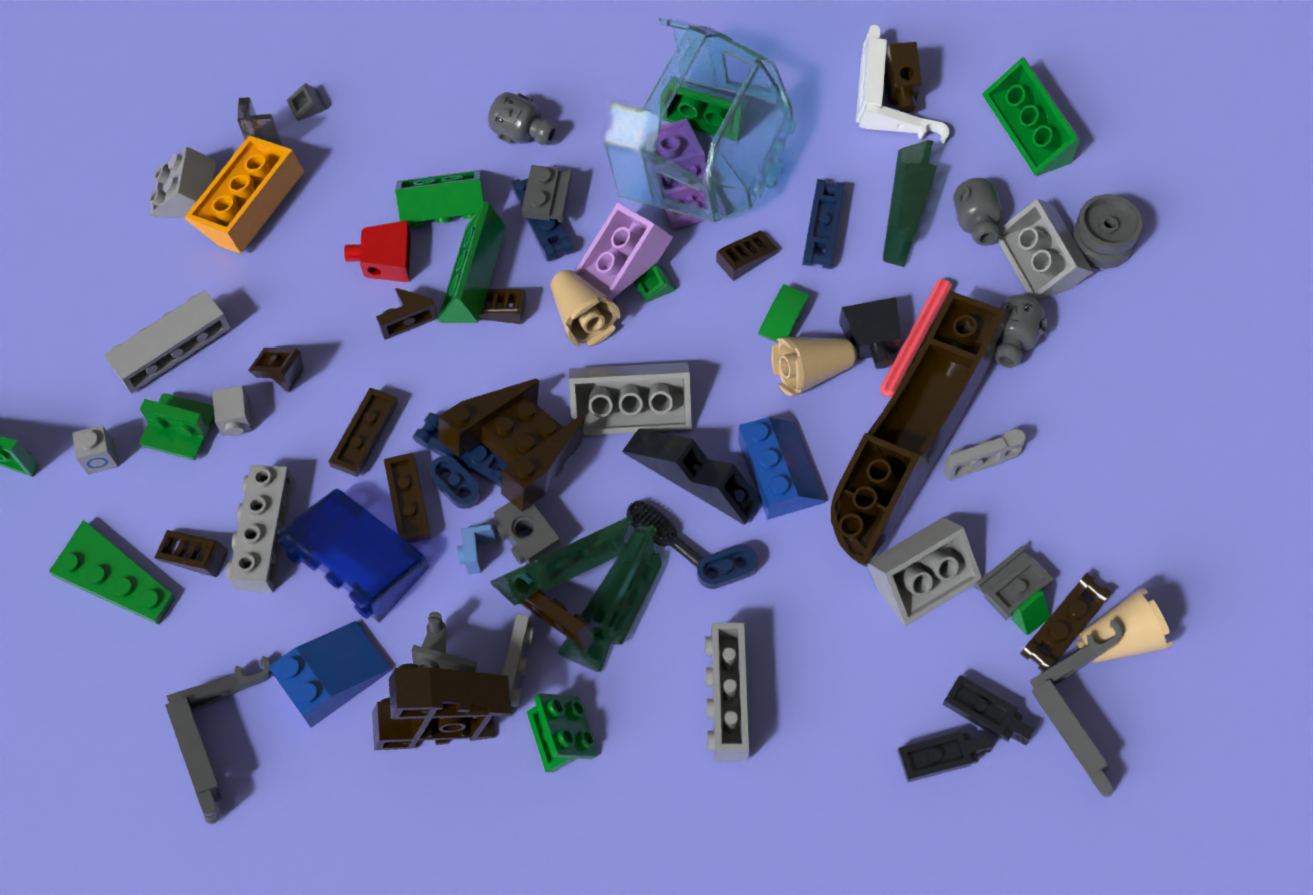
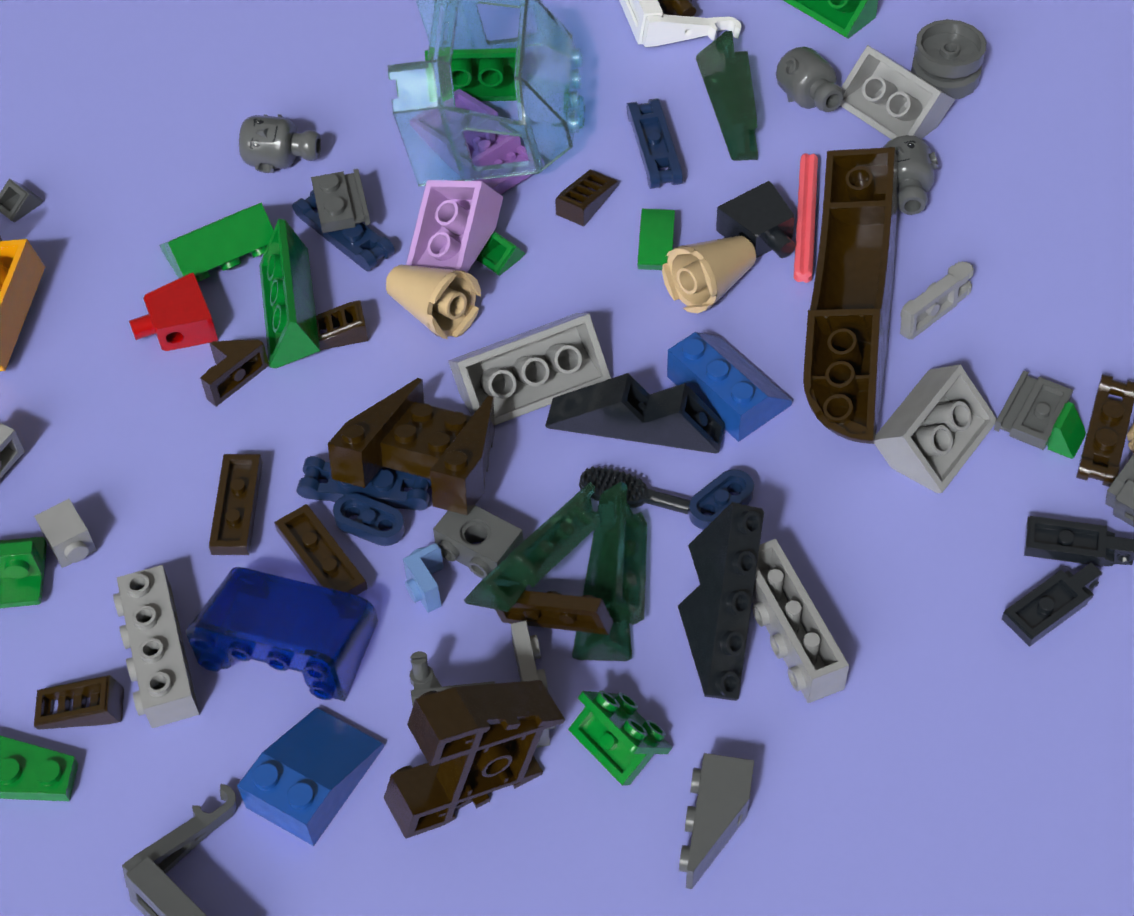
camera: 20 degrees left, 10 degrees down
(279, 364) = (104, 464): dark brown slope -> none
(608, 818) = (720, 810): none -> dark grey slope
(678, 660) = (720, 607): none -> black slope

